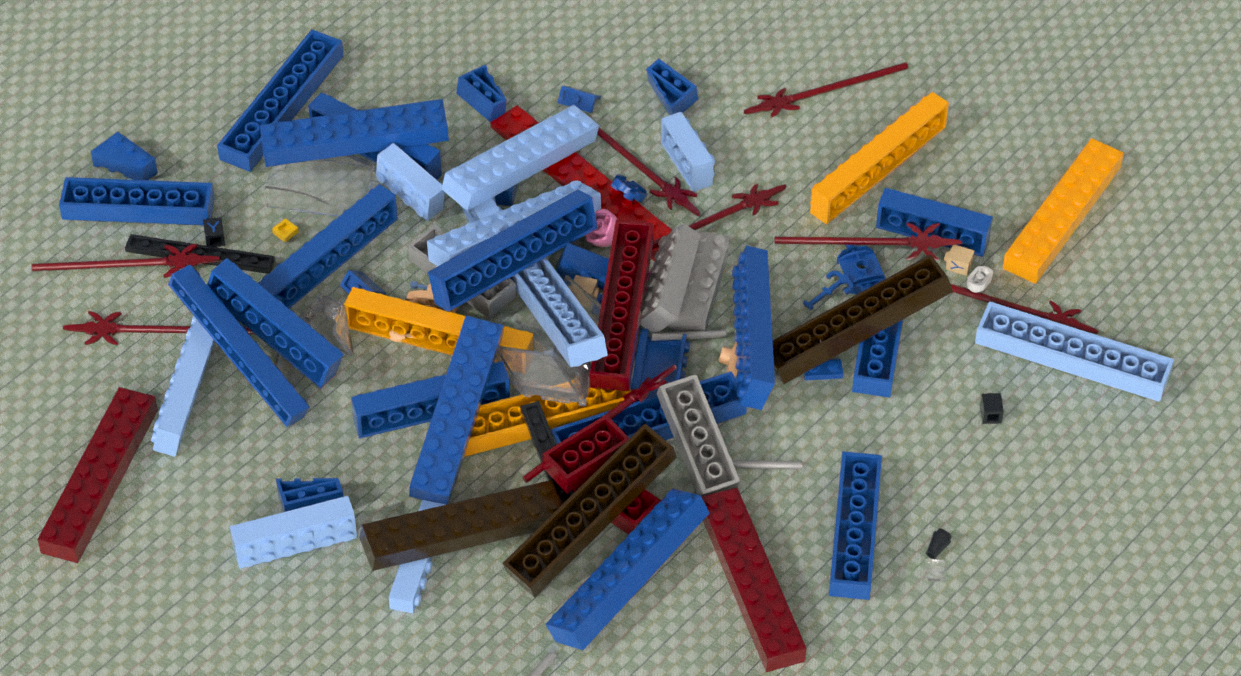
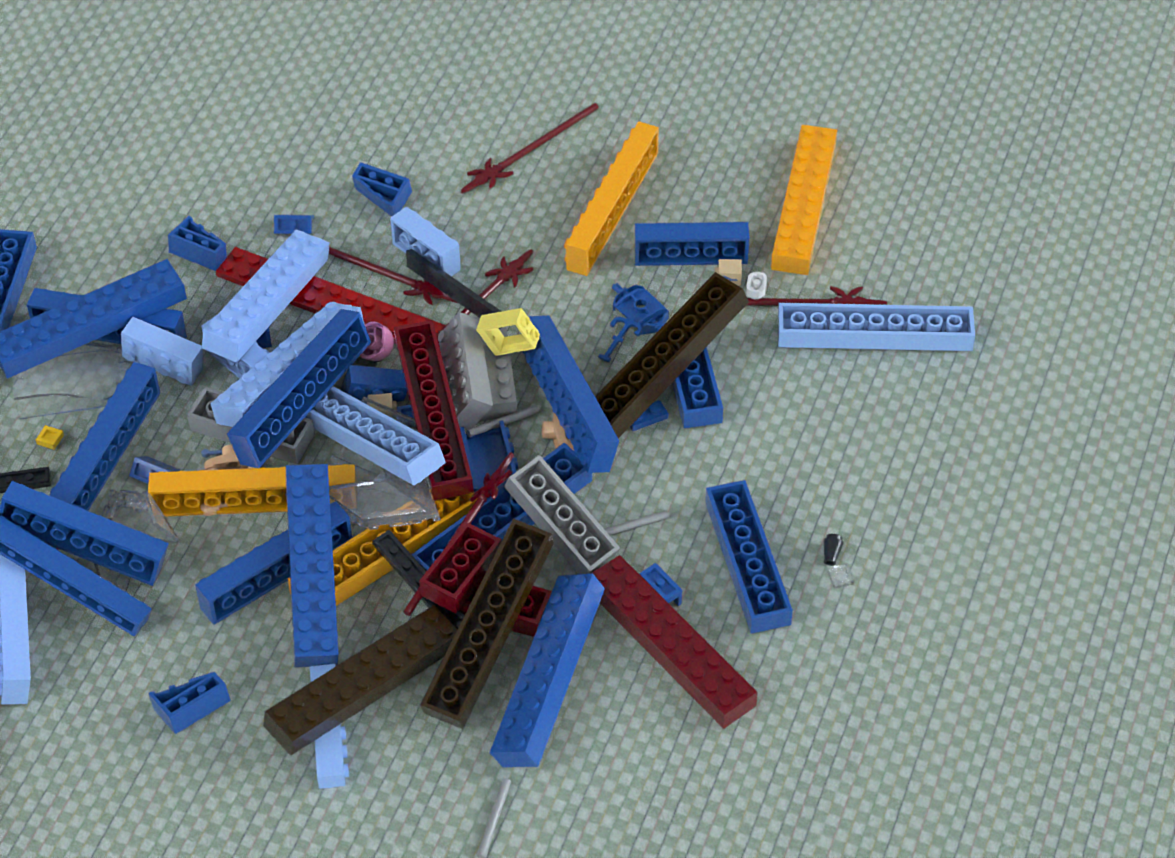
camera: 20 degrees left, 0 degrees up
(293, 532) = (189, 742): light blue brick -> none
(631, 190) = (386, 295): blue plate -> none
(693, 201) = (448, 285): none -> black tile
(710, 264) = (500, 345): none -> light yellow window
(765, 526) = (662, 584): none -> blue panel
(922, 241) = (688, 265): dark red piece -> none
(991, 408) = (823, 404): black brick -> none

